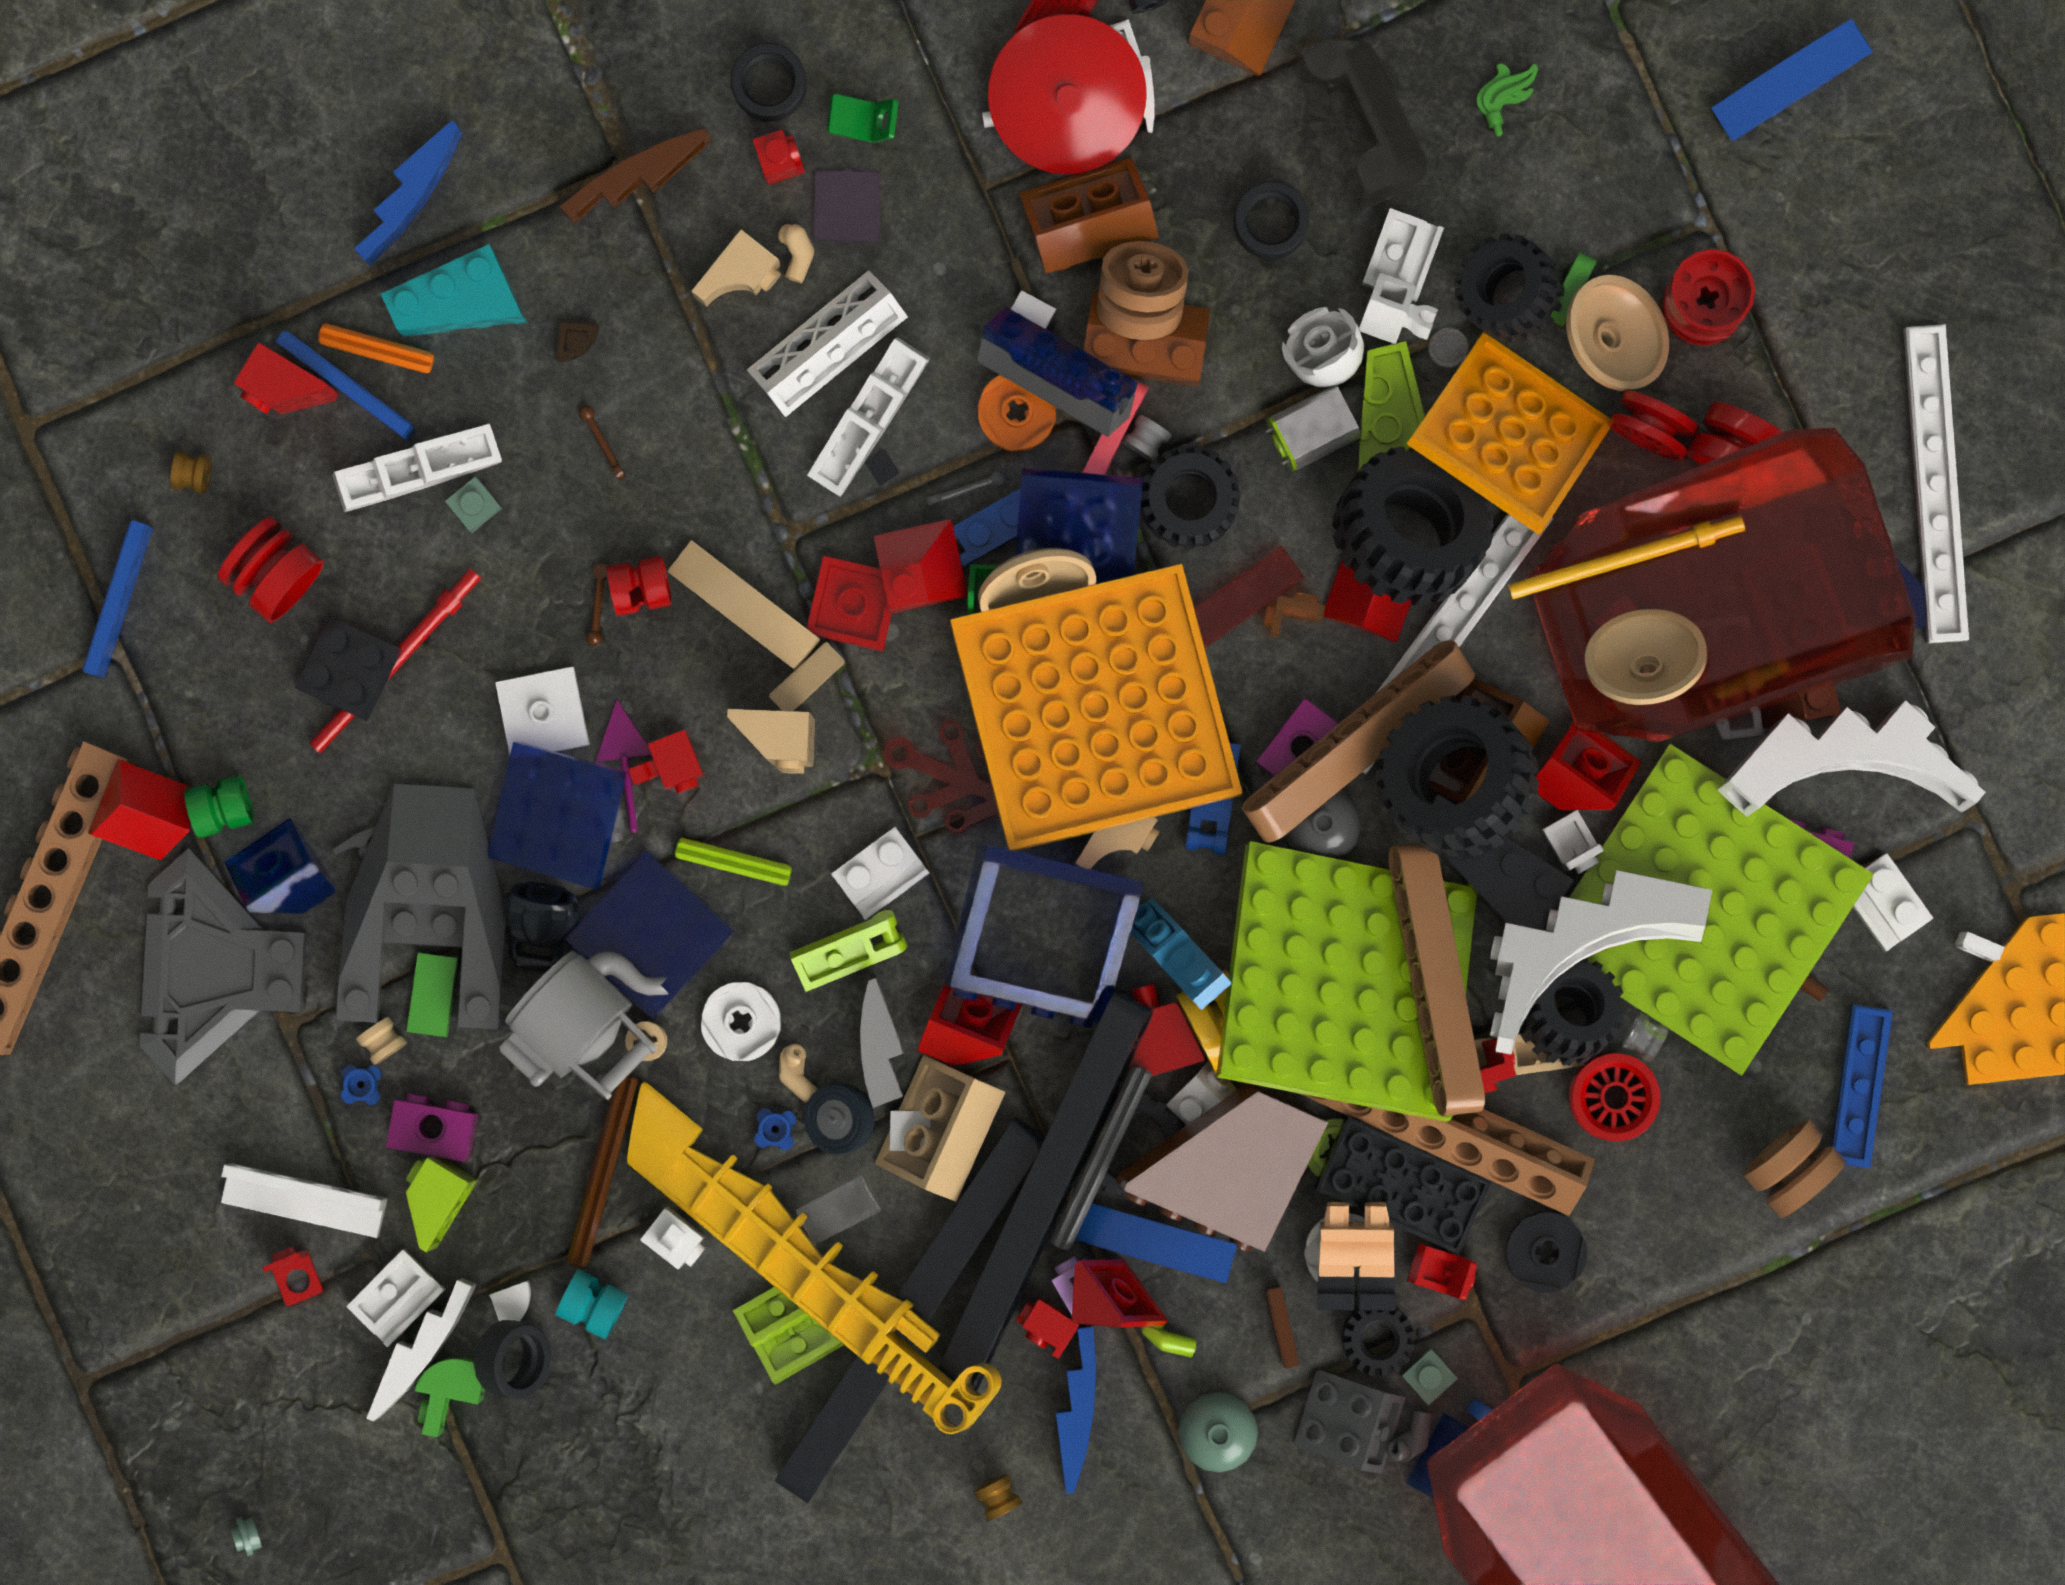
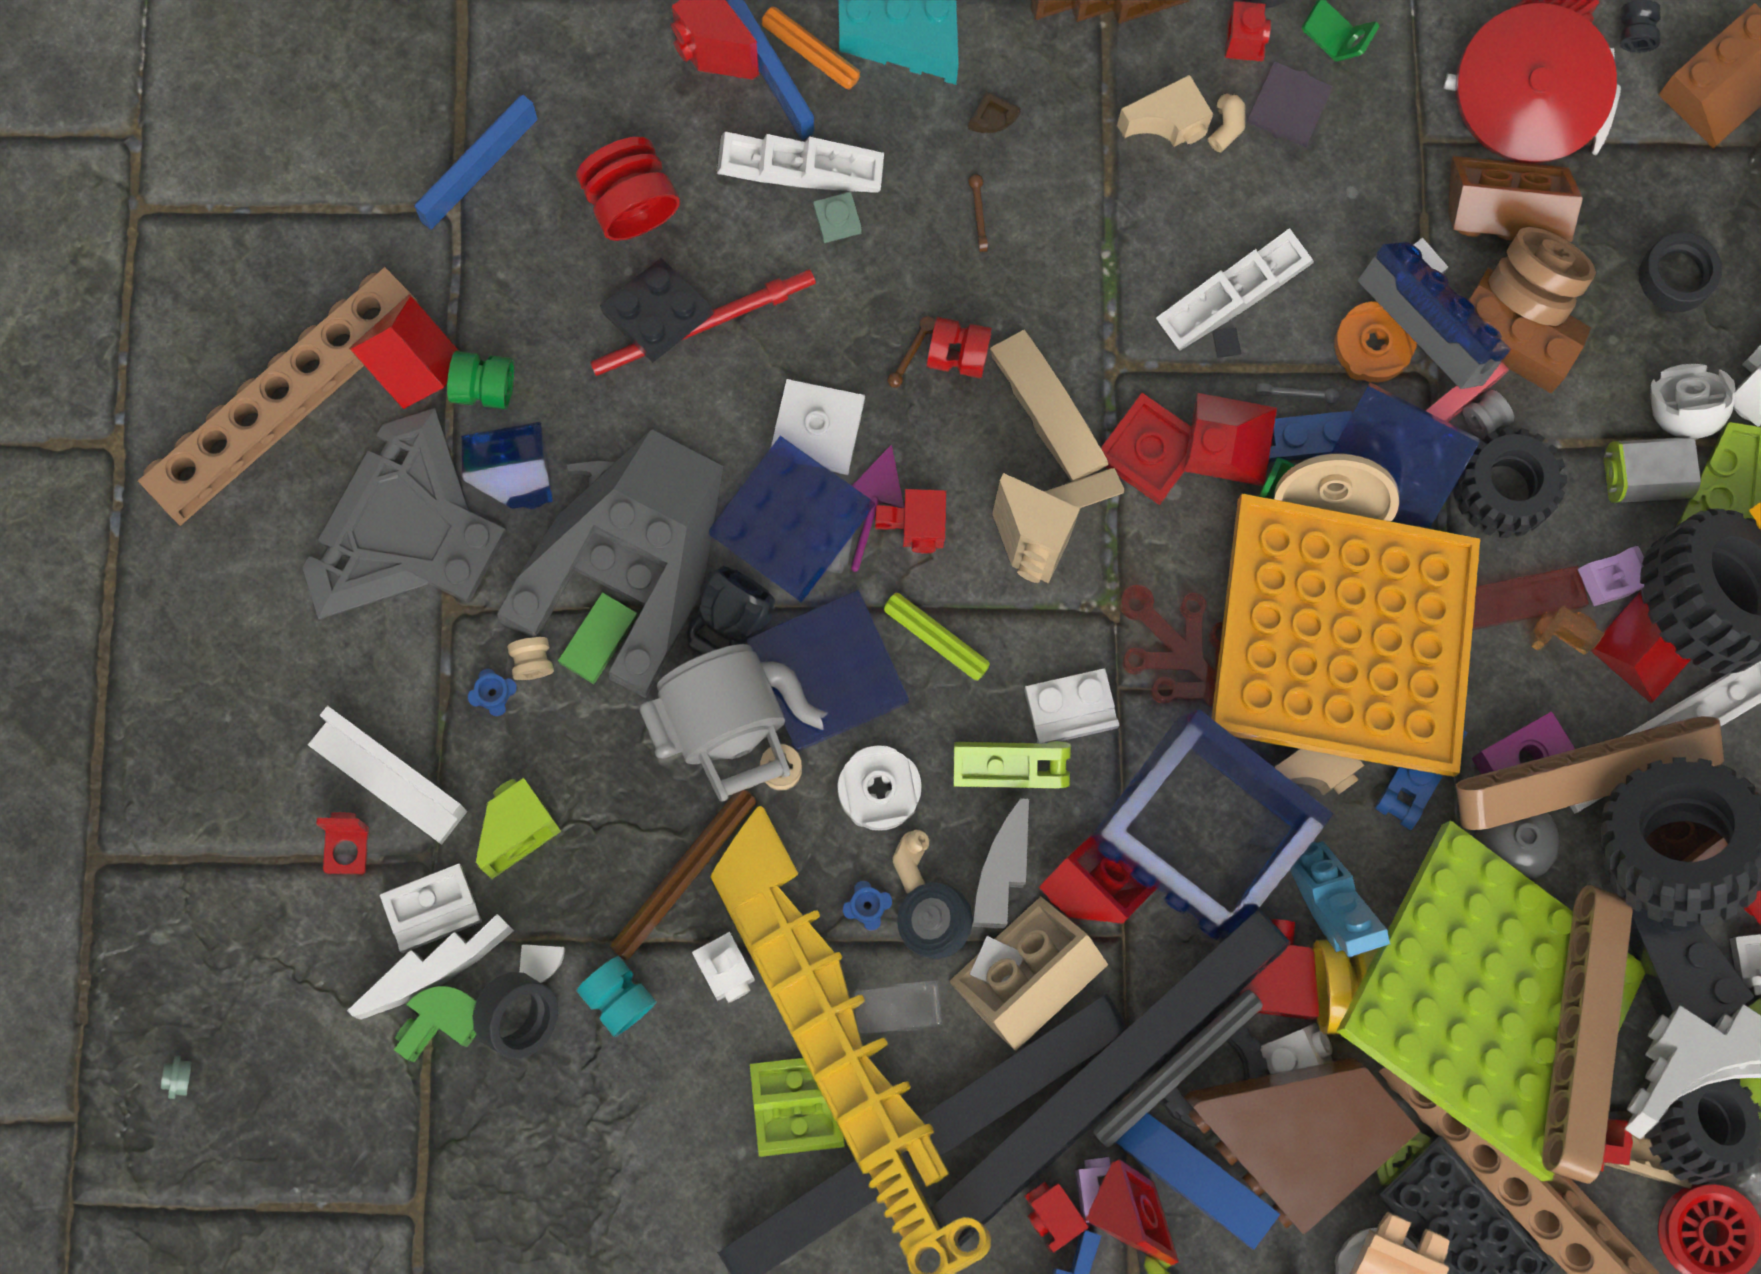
camera: 15 degrees right, 10 degrees down
(191, 472) = (595, 81): pearl gold wheel -> none
(408, 1134) = (555, 781): magenta brick -> none
(831, 346) = (1225, 213): white fence -> none
(1313, 545) = (1613, 576): none -> lavender bracket

